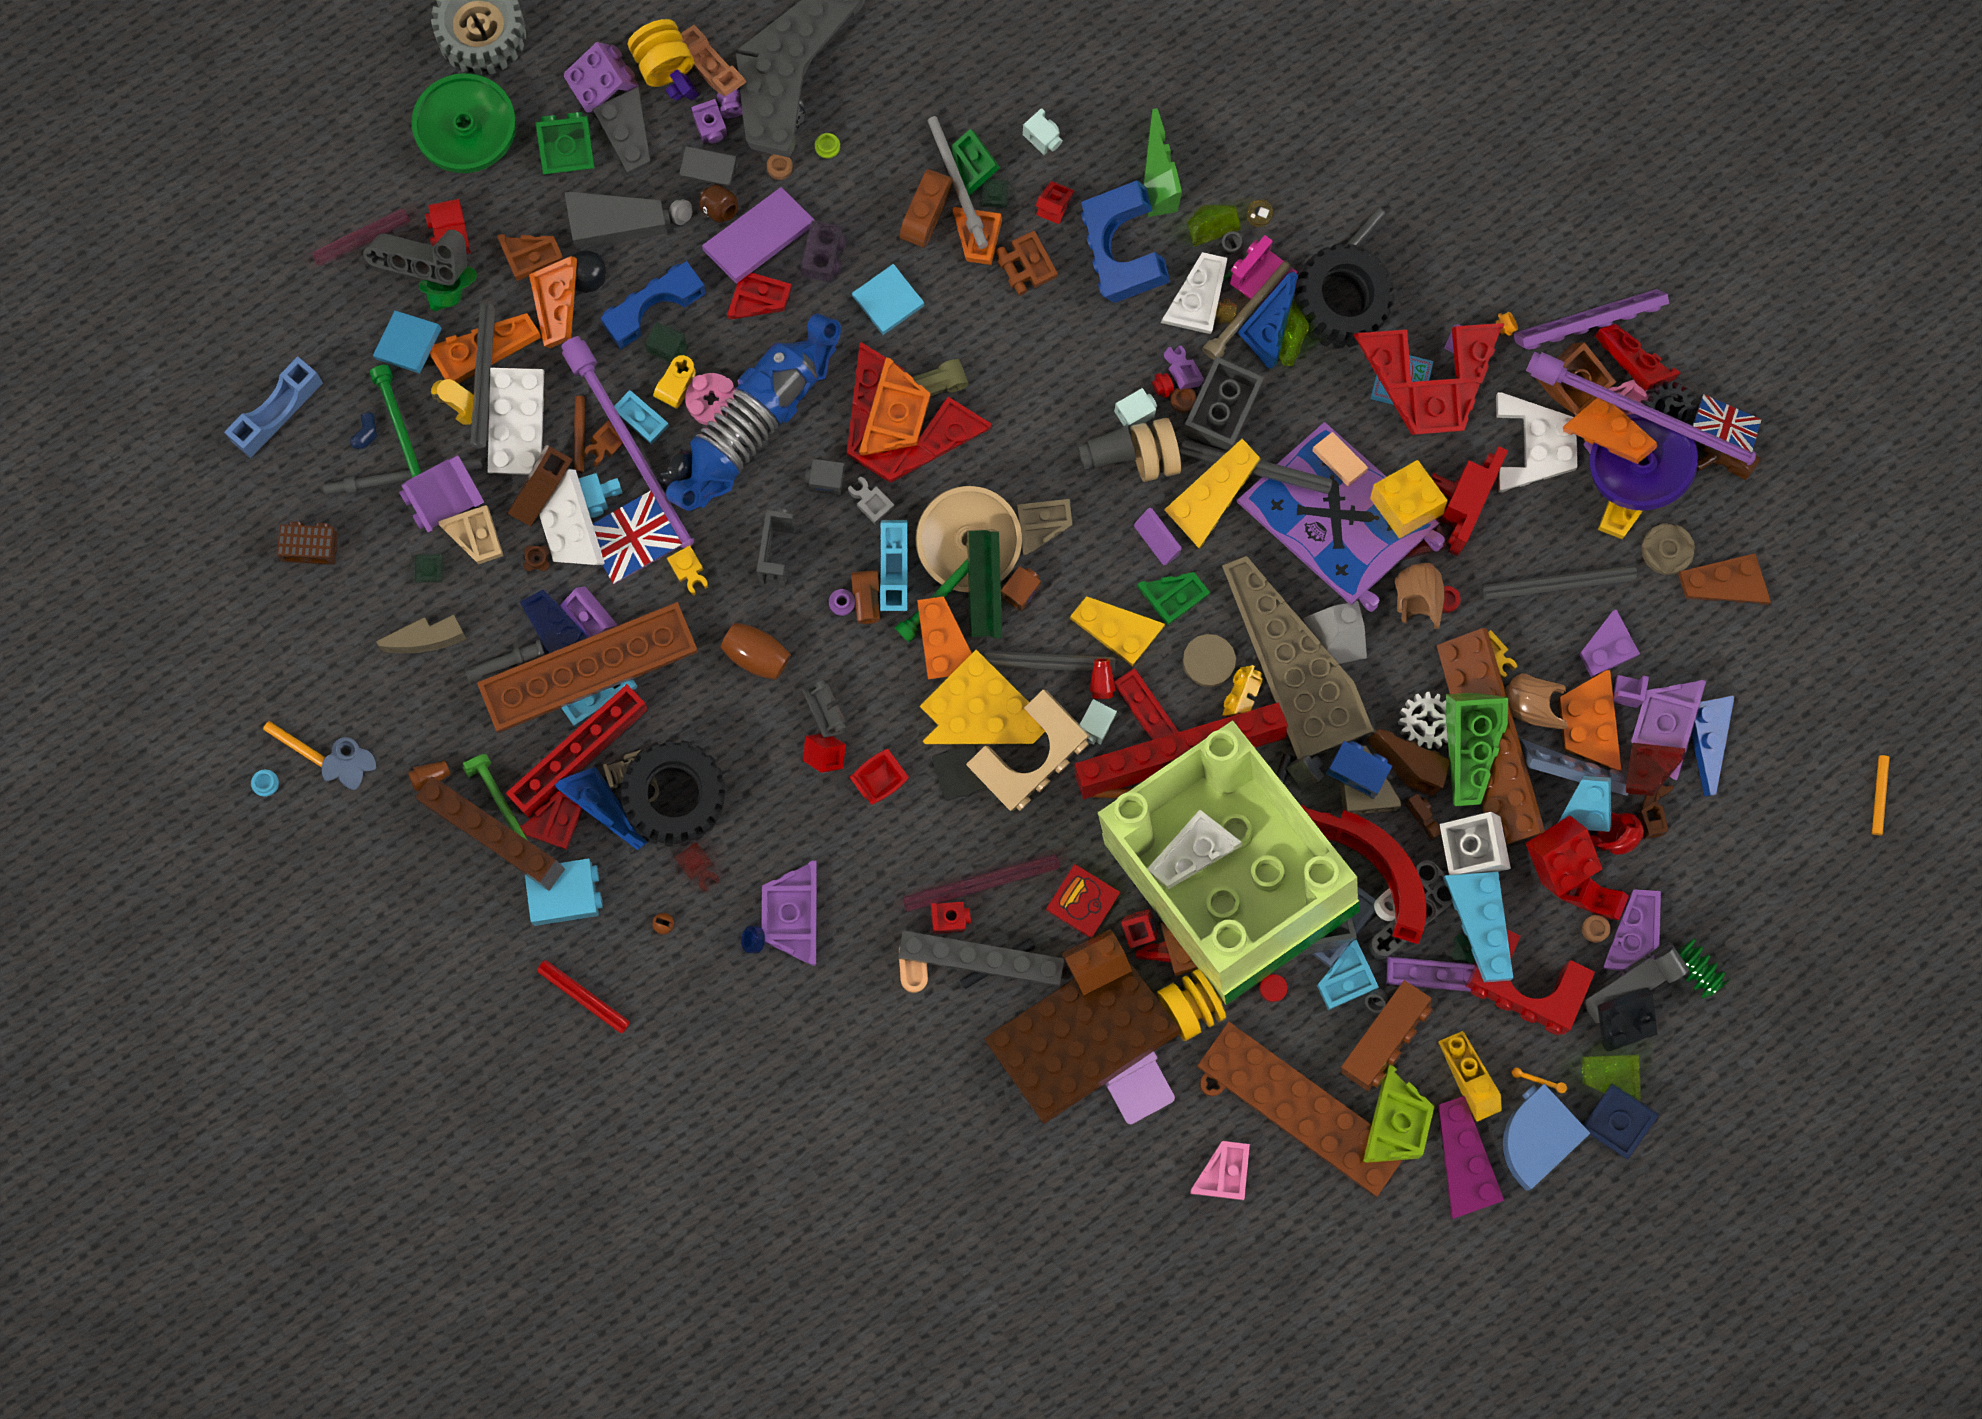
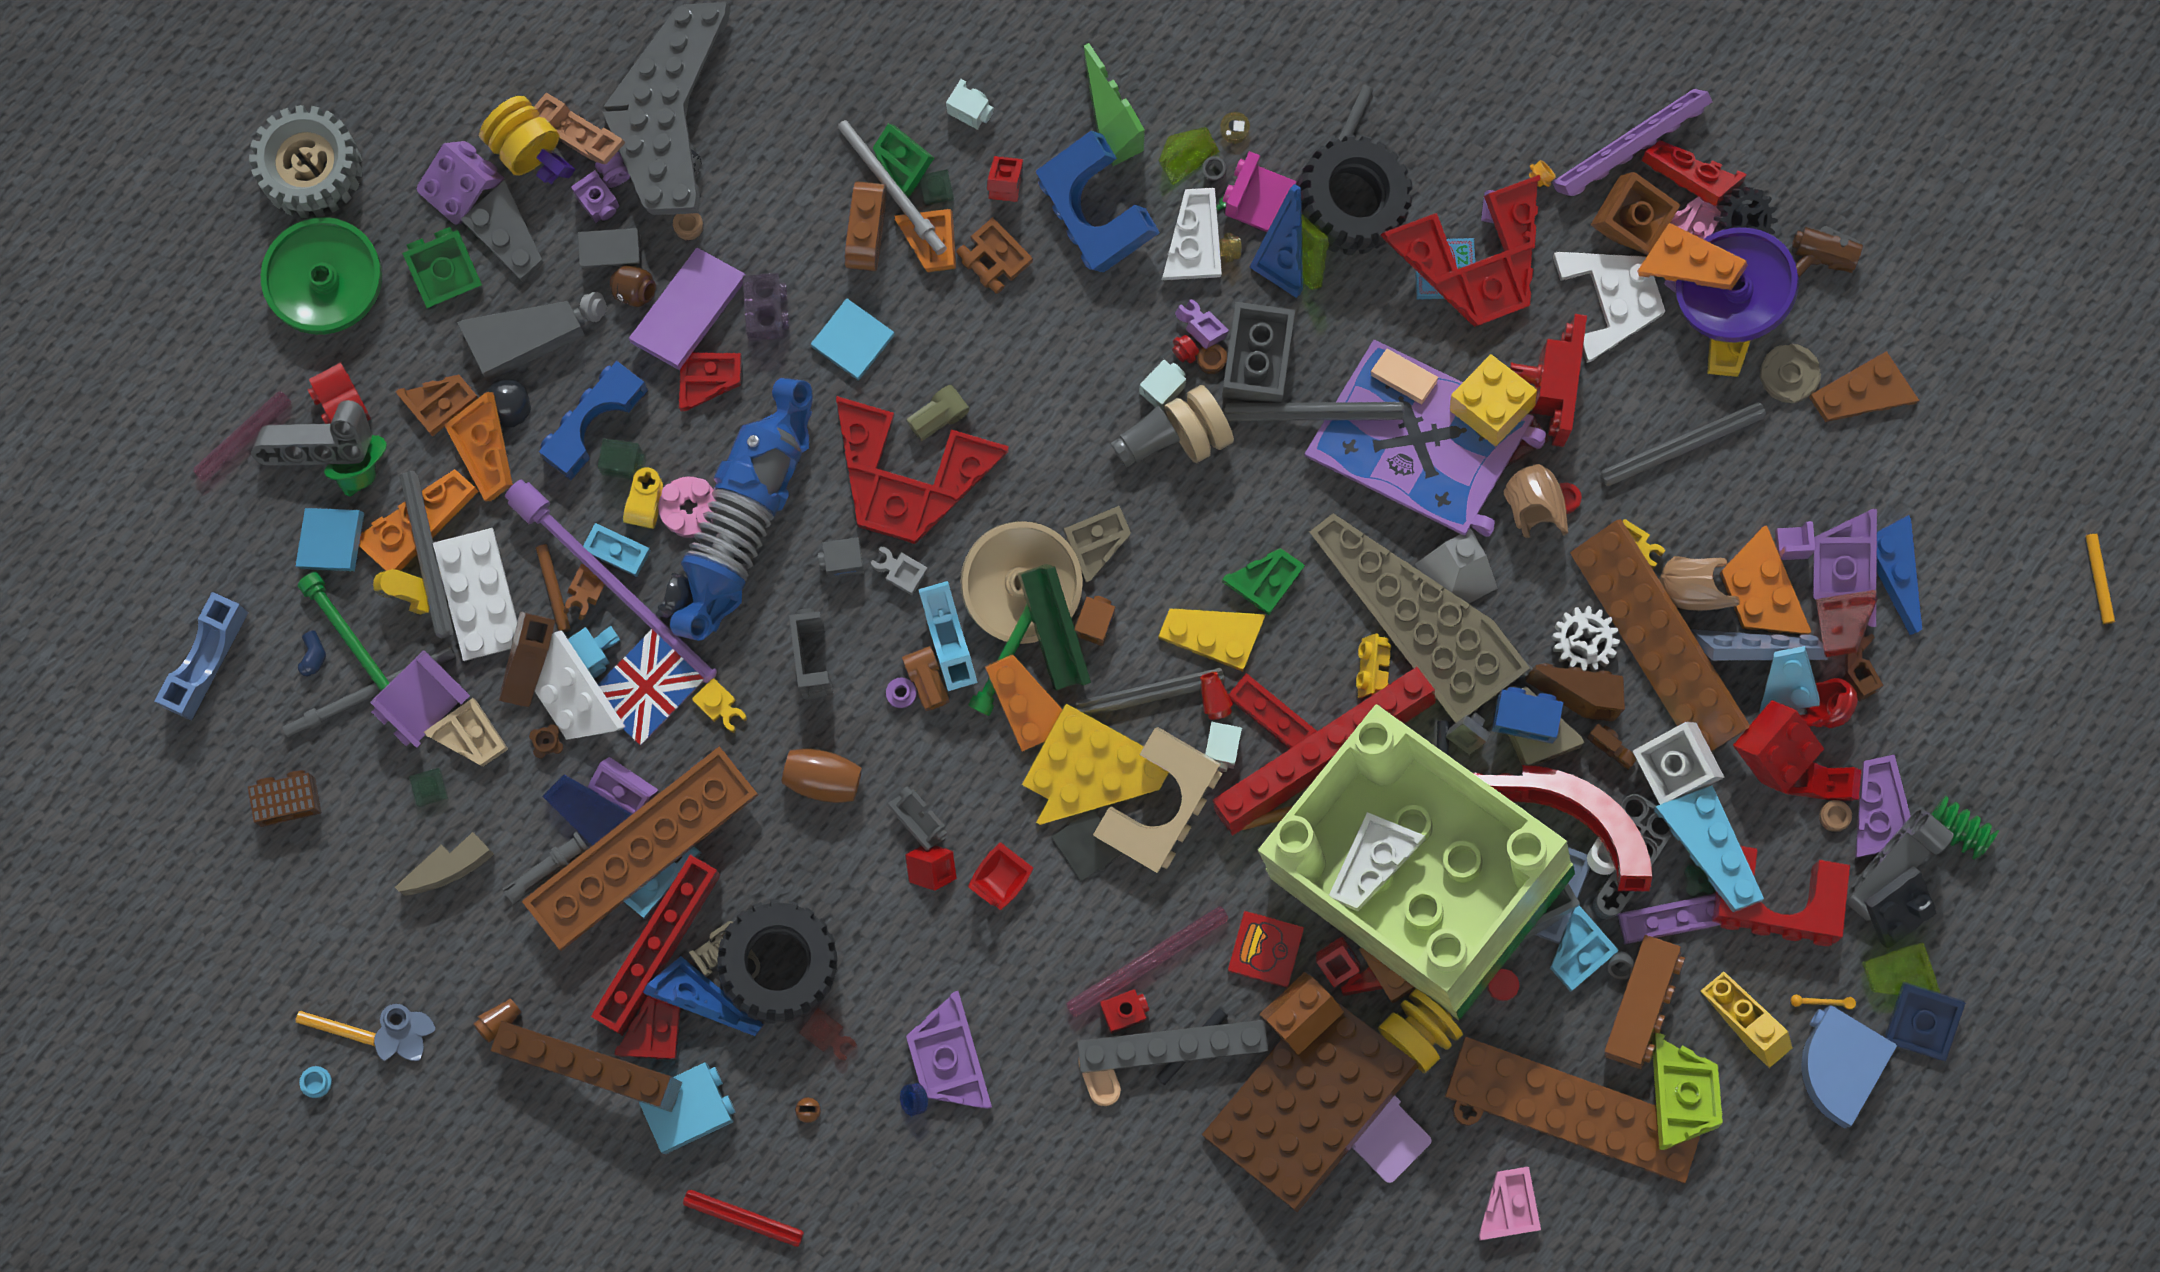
camera: 10 degrees left, 0 degrees up
(480, 765) = (550, 992): bright green piece -> none
(827, 145) = (734, 186): lime plate -> none
(896, 412) = (898, 463): orange wing -> none
(1157, 537) = (1229, 519): medium lavender slope -> none
(1209, 660) = (1325, 641): dark tan tile -> none
(1211, 494) = (1275, 454): yellow wing -> none
(1217, 345) = (1231, 290): dark tan piece -> none
(1467, 1165) = (1775, 1123): magenta wing -> none
(1473, 735) = (1641, 641): bright green wedge -> none
(1609, 646) = (1757, 499): medium lavender wing -> none
(1714, 425) = (1802, 220): medium lavender flag -> none

